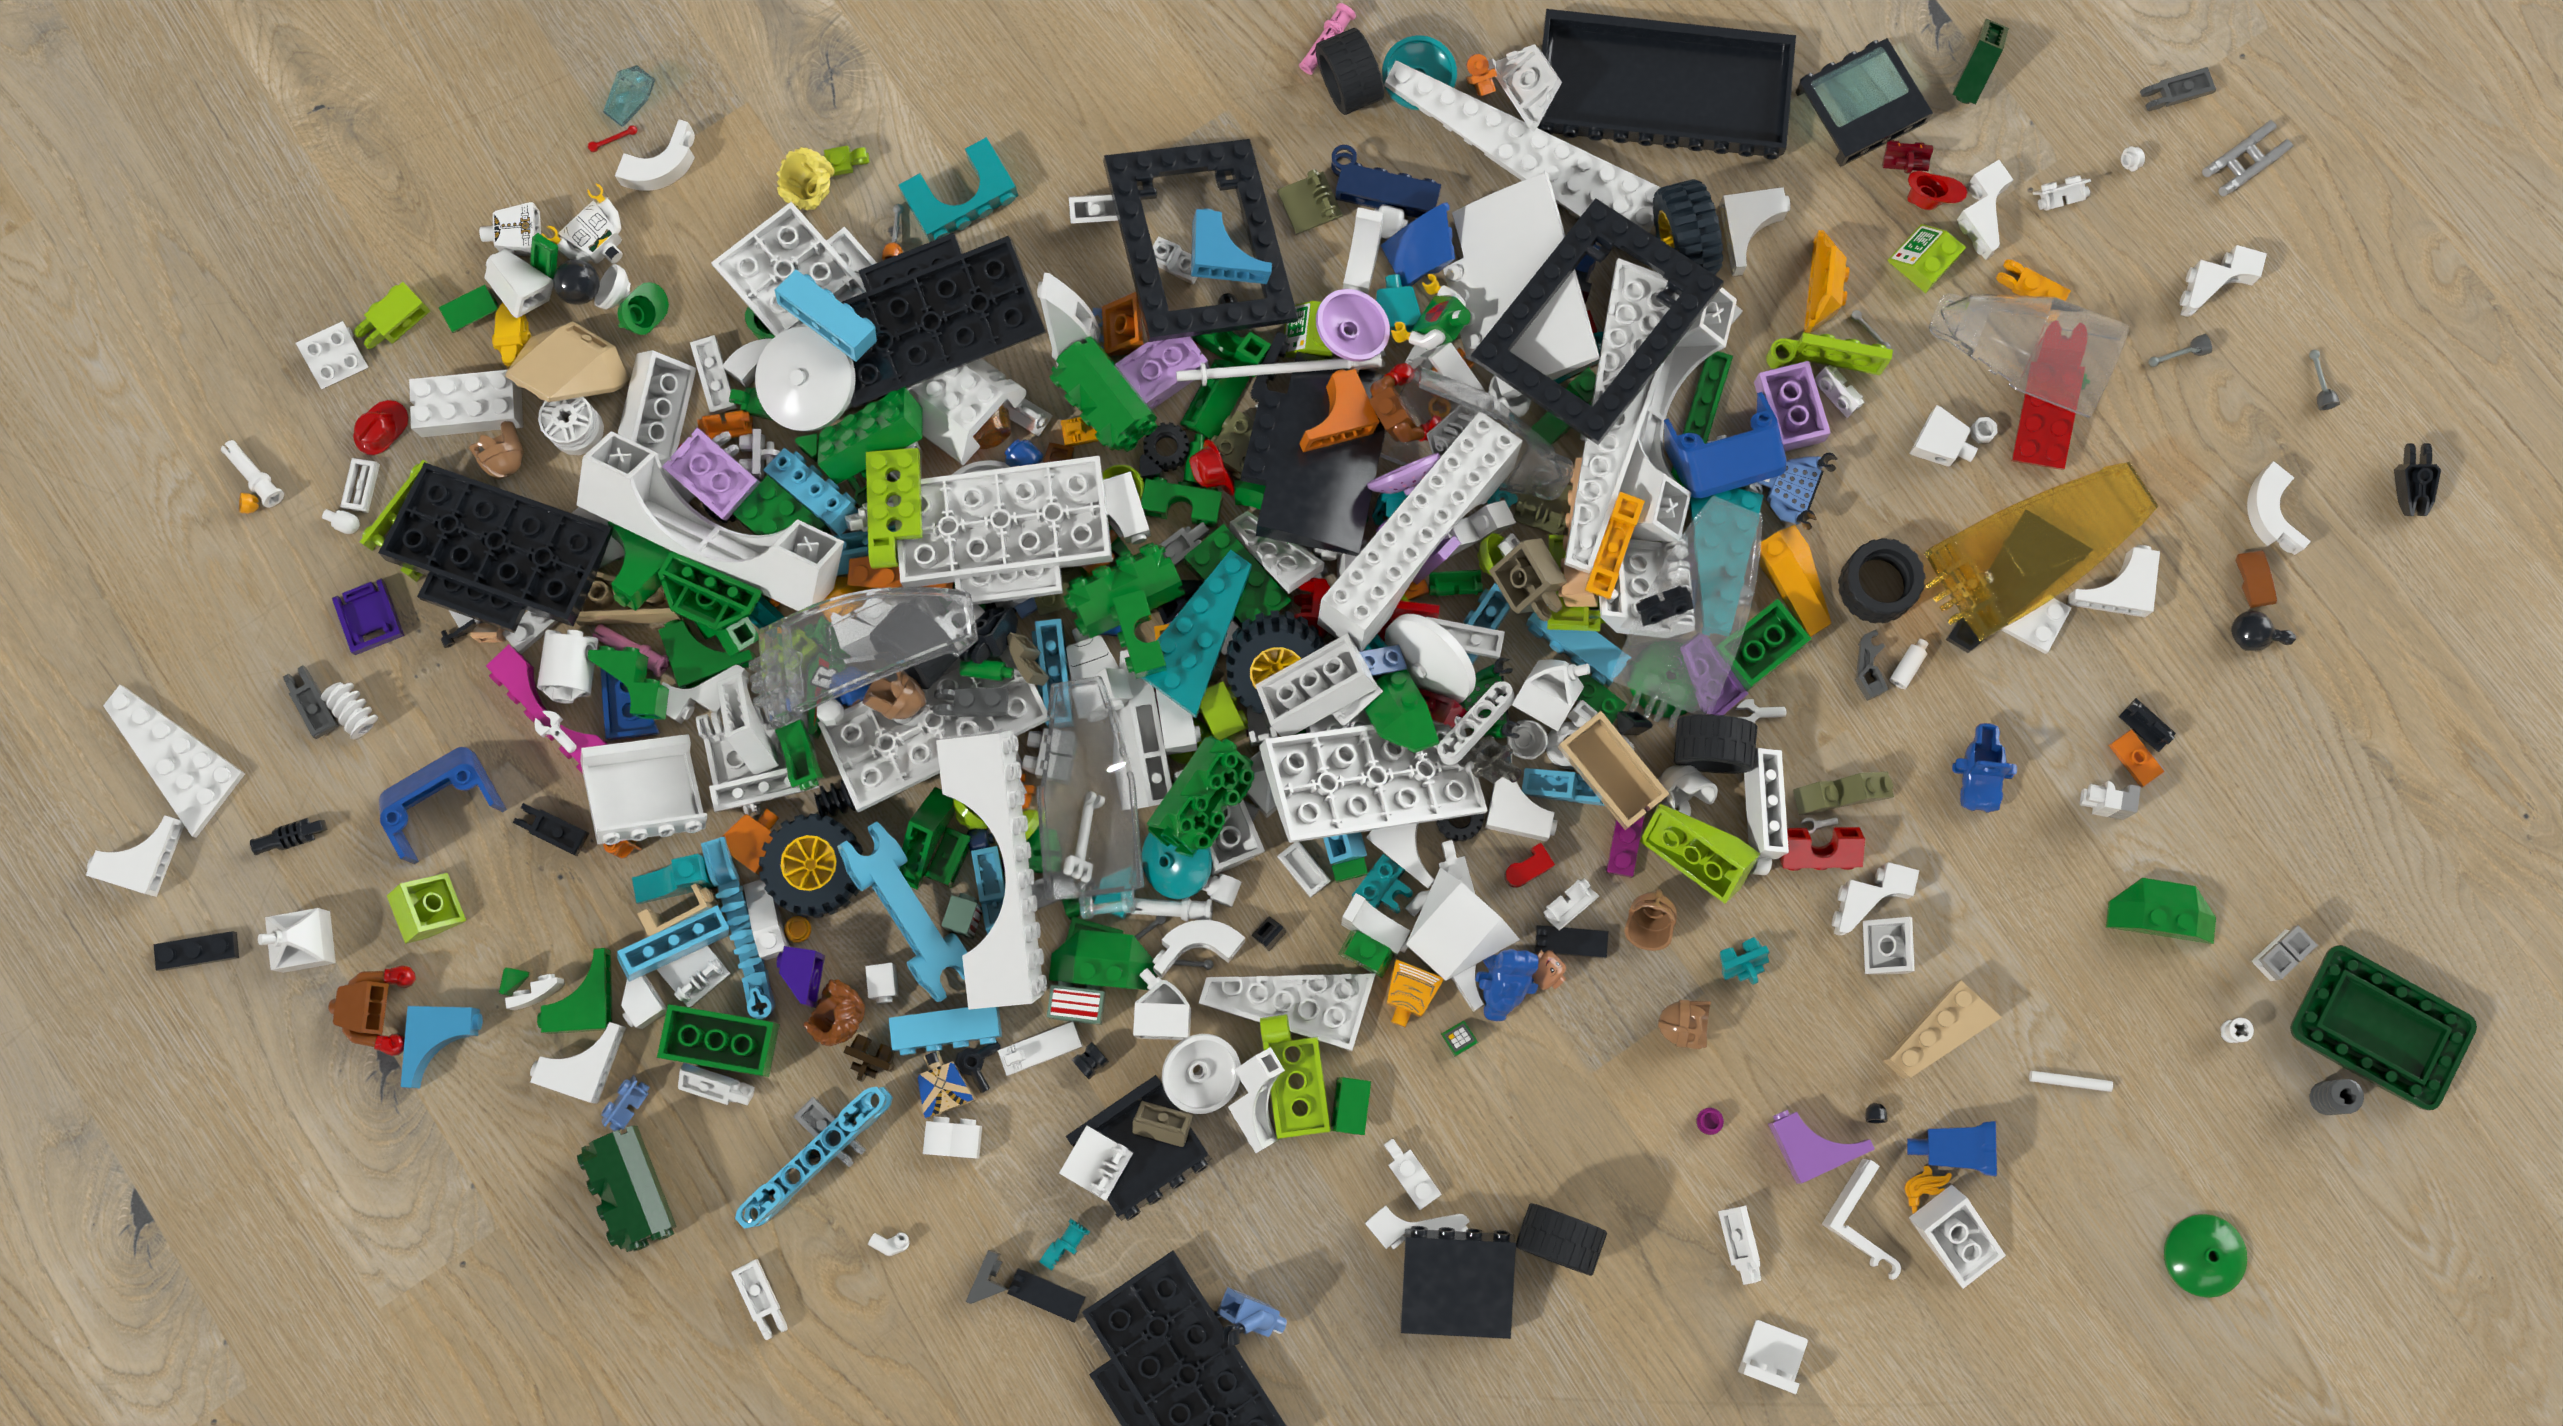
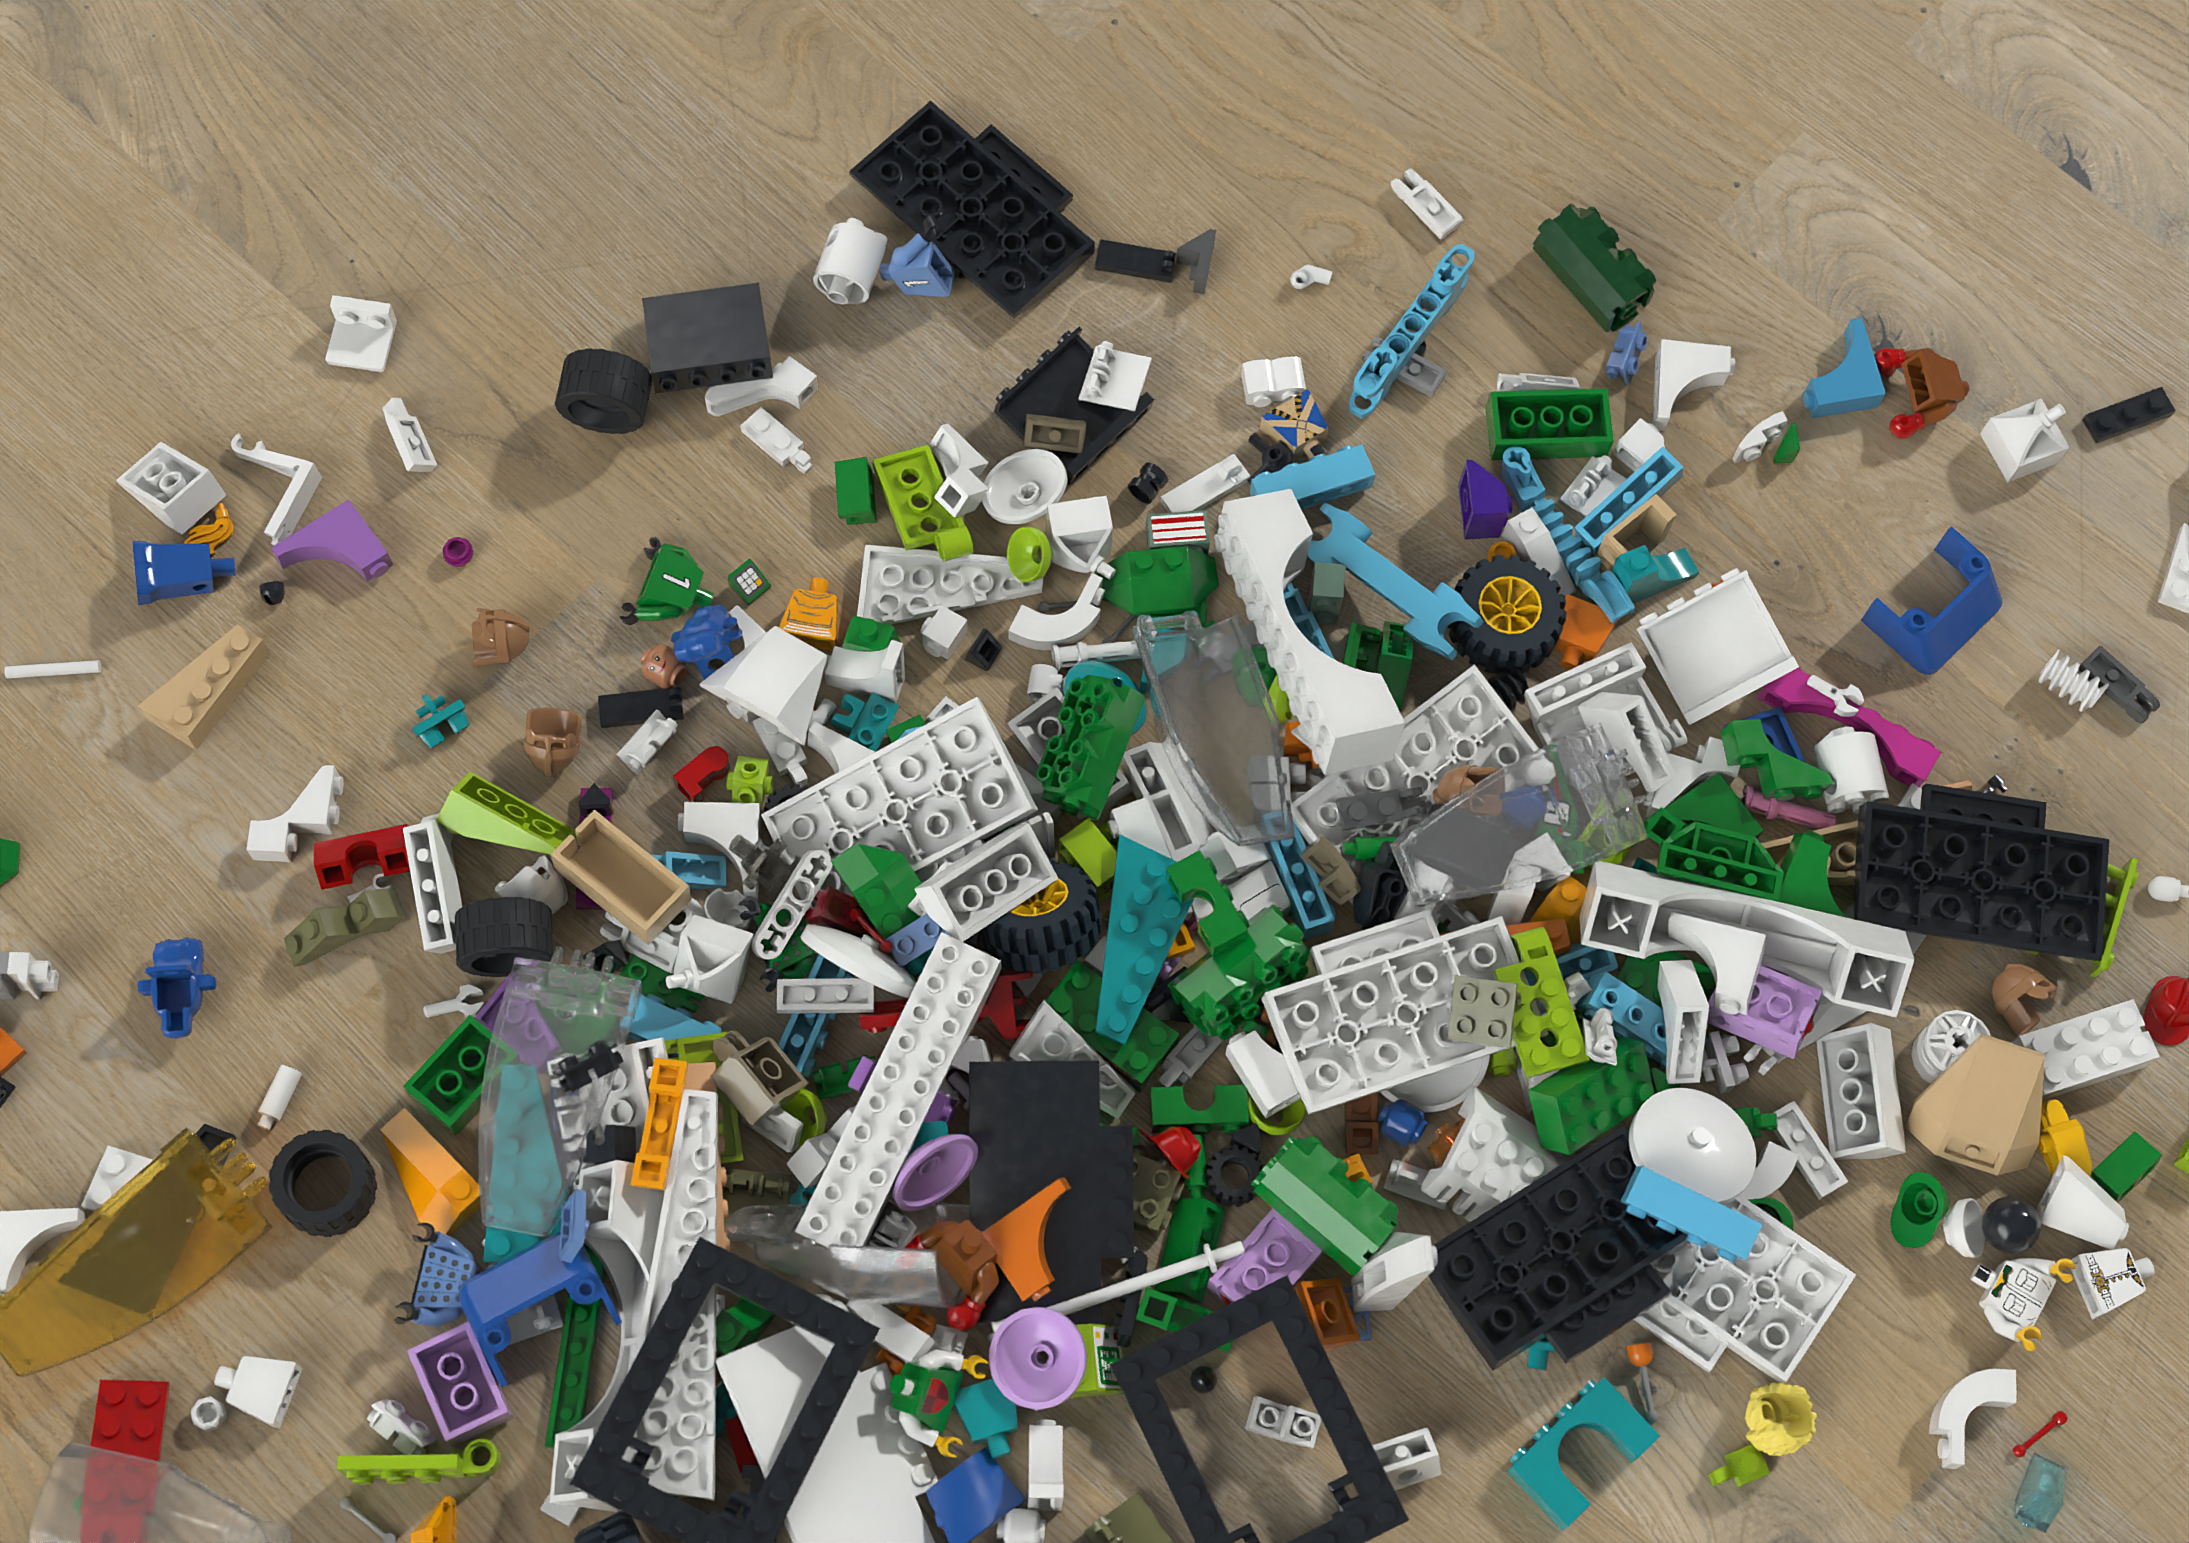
camera: 160 degrees right, 10 degrees down
(288, 836) = (2082, 543): black hinge -> none
(366, 613) = (2099, 796): dark purple container -> none
(369, 487) = (2155, 938): white tile -> none
(425, 907) = (1906, 498): lime slope -> none
(544, 255) = (2061, 1243): green tile -> none
(554, 830) = (1804, 604): black hinge -> none
(588, 1006) = (1699, 431): green arch -> none
(724, 506) = (1729, 952): none -> white arch
(736, 422) = (1770, 1087): orange hinge -> none
(777, 477) = (1685, 1020): none -> white arch
(799, 756) = (1549, 699): green arch -> none
(836, 1015) = (1433, 469): dark orange hair -> none
(852, 469) = (1599, 1037): none -> white hinge
(859, 1050) = (1386, 439): dark brown hips -> none
(882, 982) = (1394, 517): white brick -> none
(940, 499) = (1483, 1011): none -> hinge
(1068, 1241) = (1127, 307): teal connector -> none
(1076, 864) = (1212, 657): white hinge -> none
(1216, 254) = (1235, 1414): dark azure arch -> none
(1216, 1001) = (1023, 554): none -> lime piece
(1301, 953) = (943, 632): none -> white brick
(1313, 1335) = (849, 262): none -> white cylinder
(1407, 661) = (857, 915): none -> red hinge
(1490, 848) = (750, 780): none -> lime brick
(1529, 1045) = (668, 586): none -> green torso
(1622, 850) = (595, 800): none -> black slope
(1652, 546) = (618, 1145): none -> black hinge
(1692, 489) = (573, 1225): none -> medium blue plate
(1865, 662) = (332, 1095): dark grey piece -> none
(1888, 946) = (274, 767): white slope -> none

